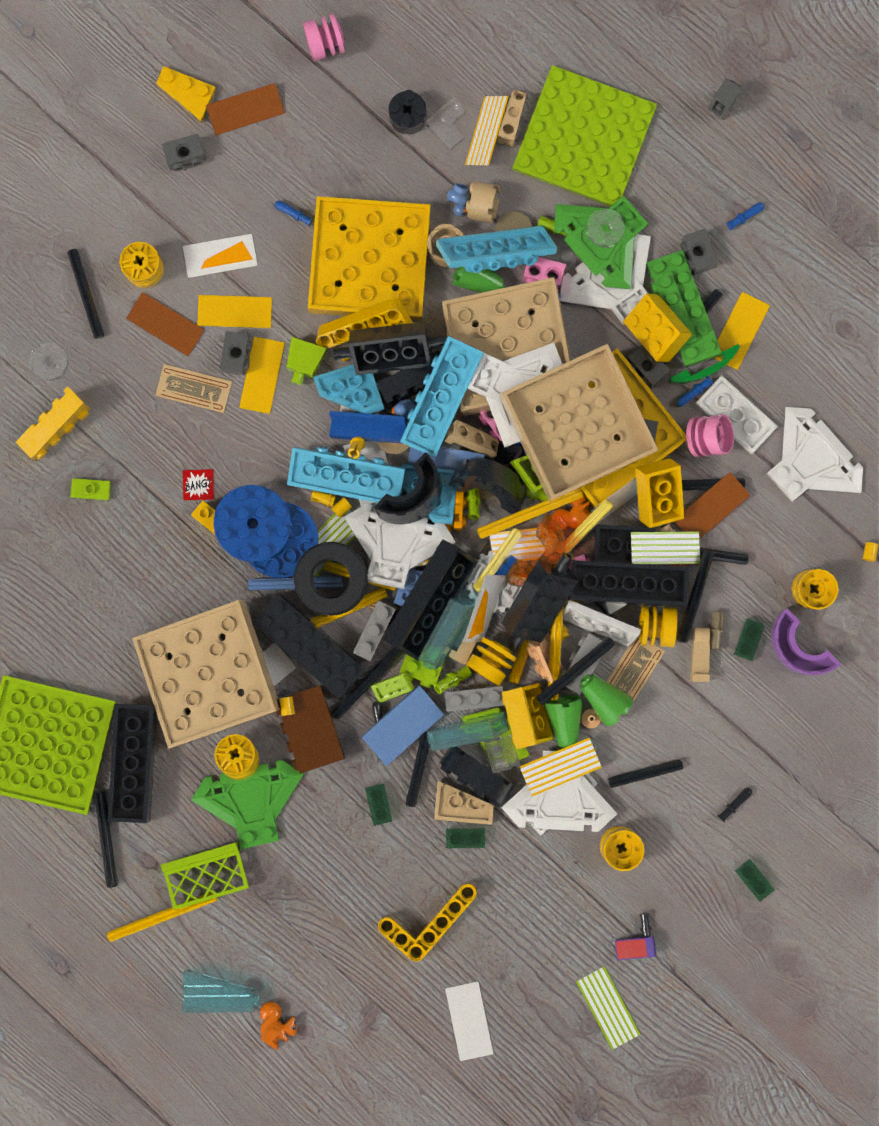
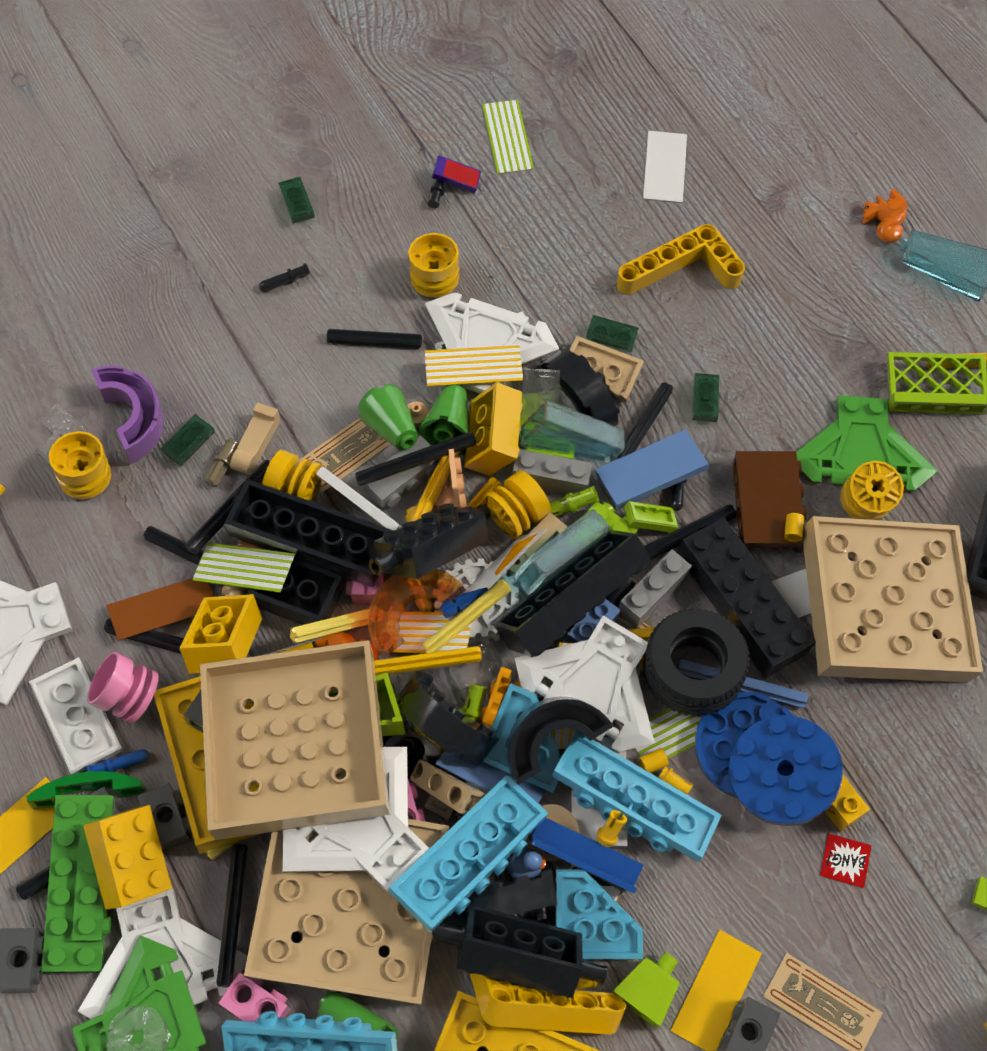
camera: 165 degrees left, 20 degrees down
(577, 313) = (232, 916): none -> black axle

